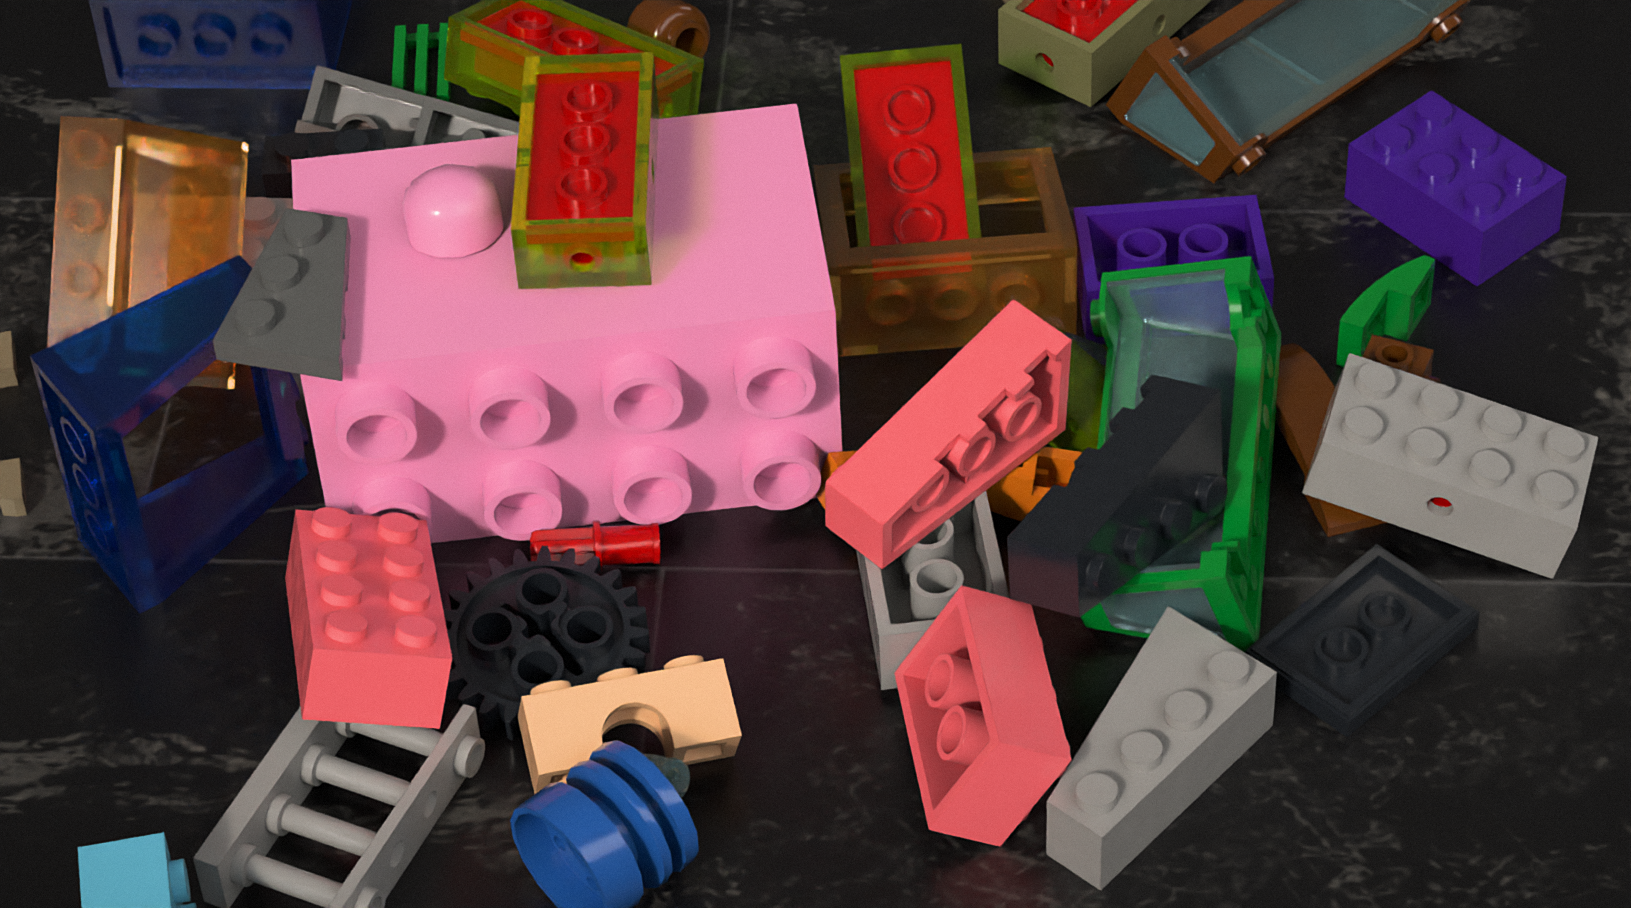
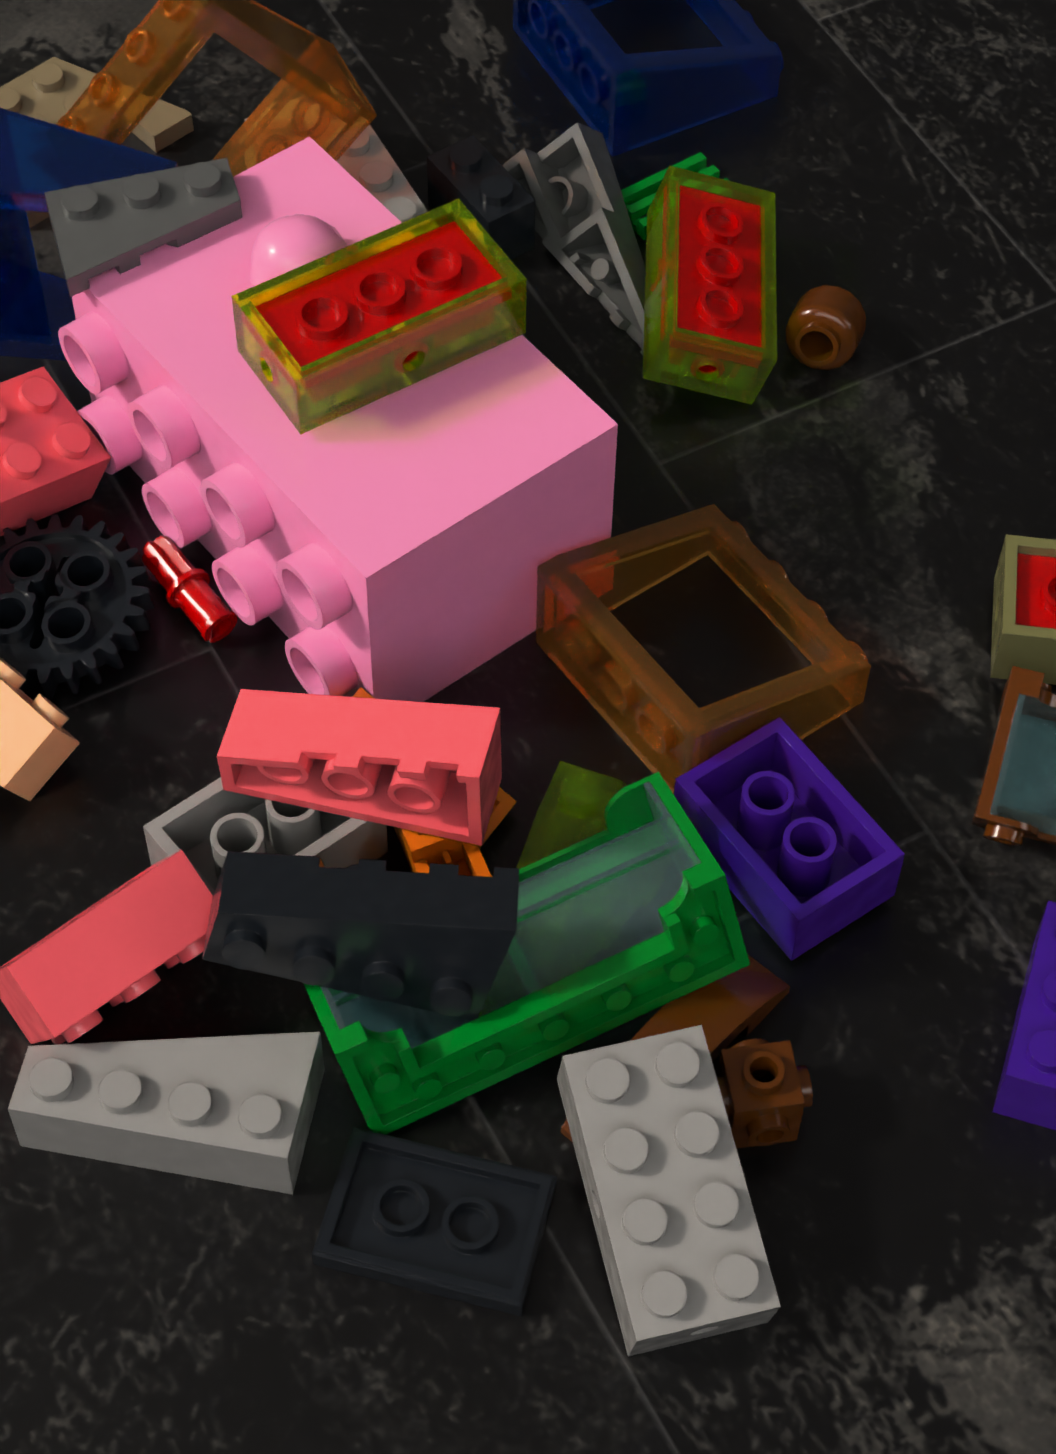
camera: 55 degrees right, 10 degrees up
(910, 146) = (728, 567): red brick -> none
(1387, 307) = (893, 1046): green slope -> none

